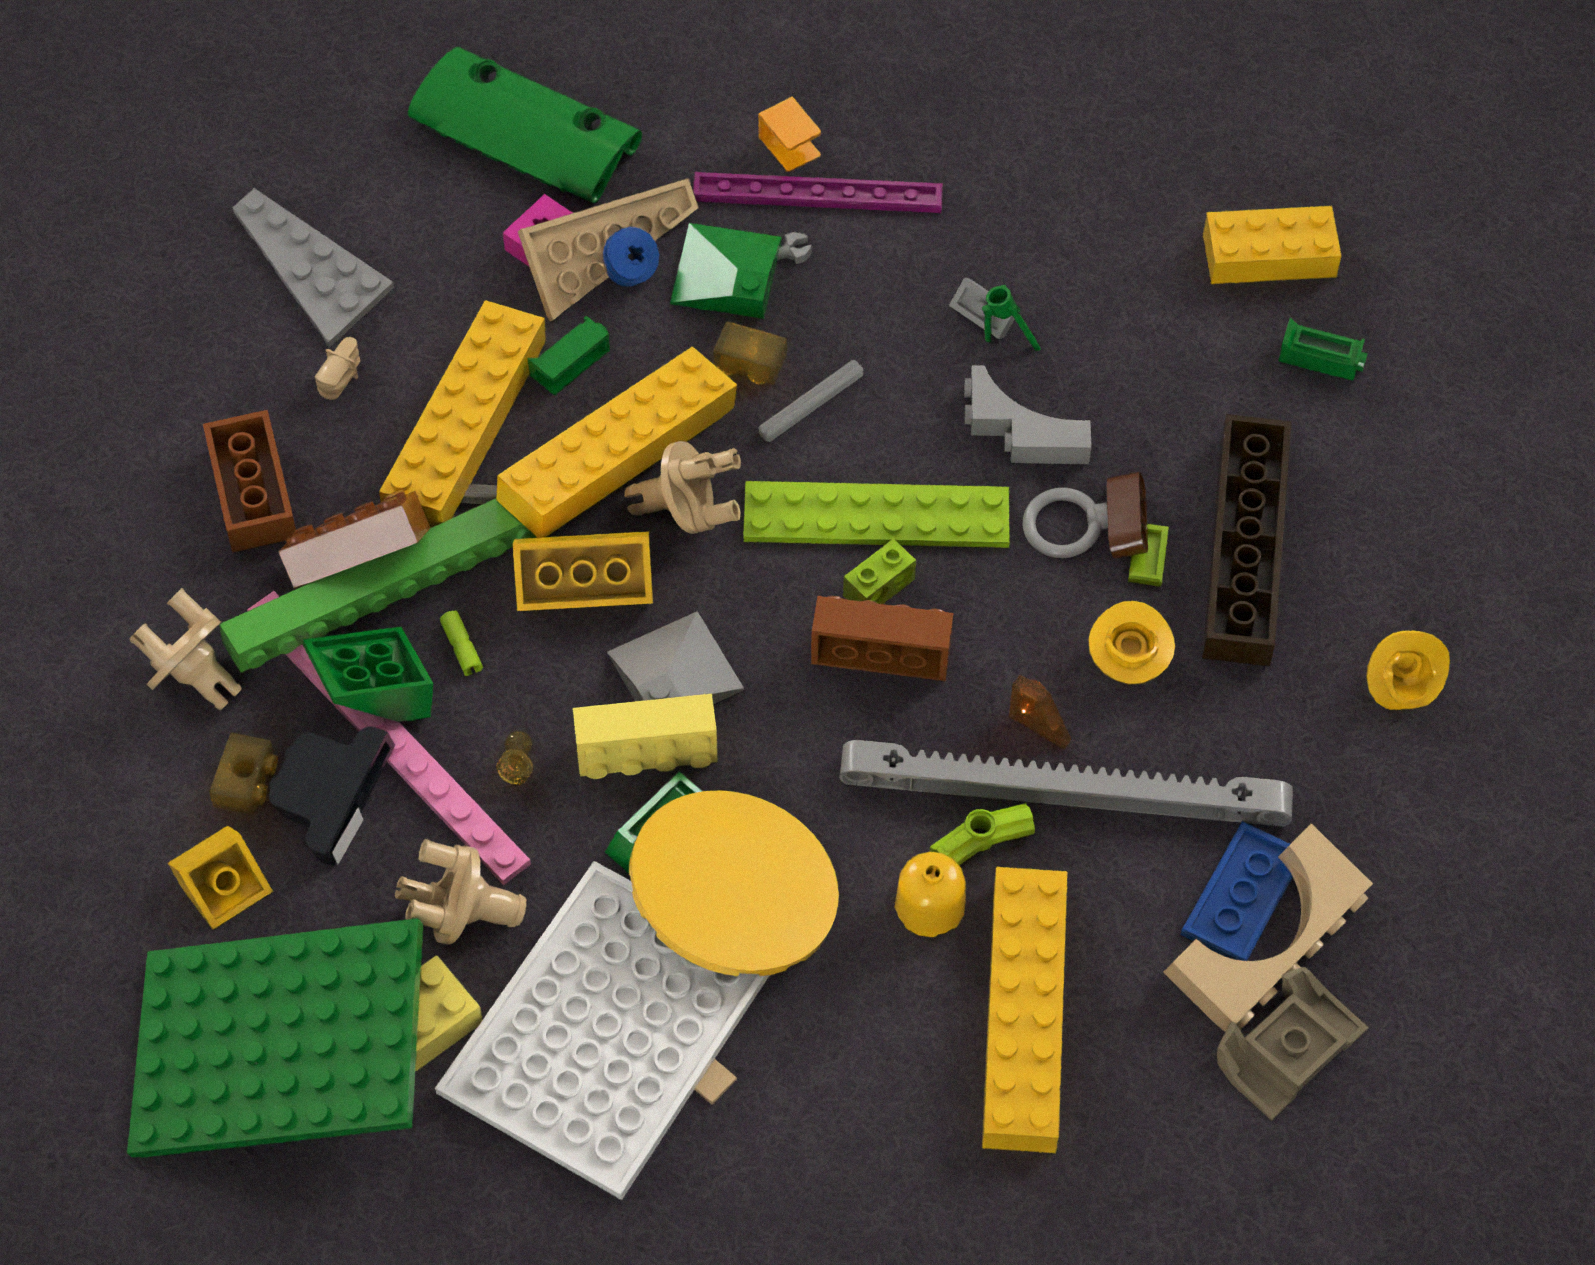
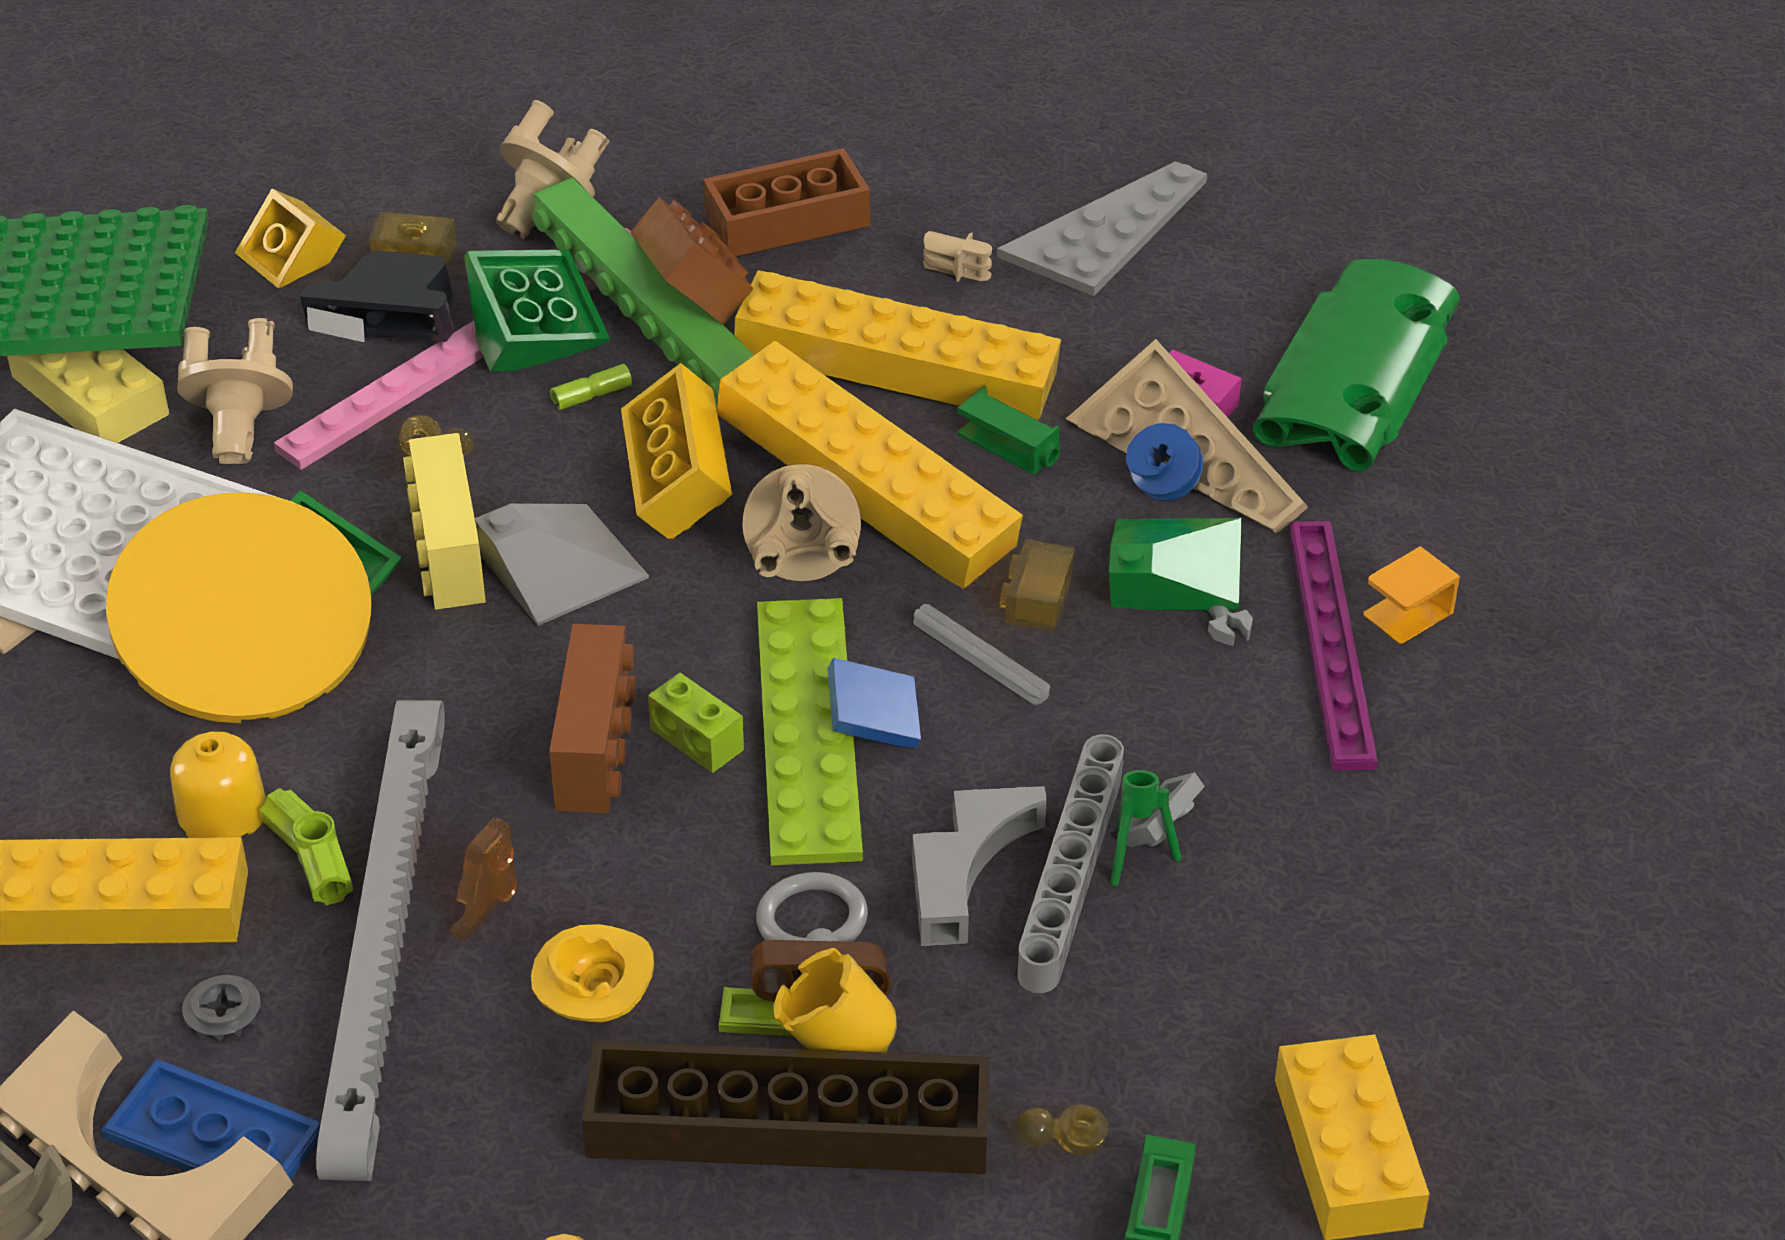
camera: 85 degrees right, 15 degrees down
(866, 466) = (873, 703): none -> tile
(1011, 356) = (1070, 864): none -> light grey beam
(1144, 881) = (207, 995): none -> flat silver gear
(1165, 505) = (836, 1006): none -> yellow cylinder
(1254, 390) = (1038, 1127): none -> clear yellow plate

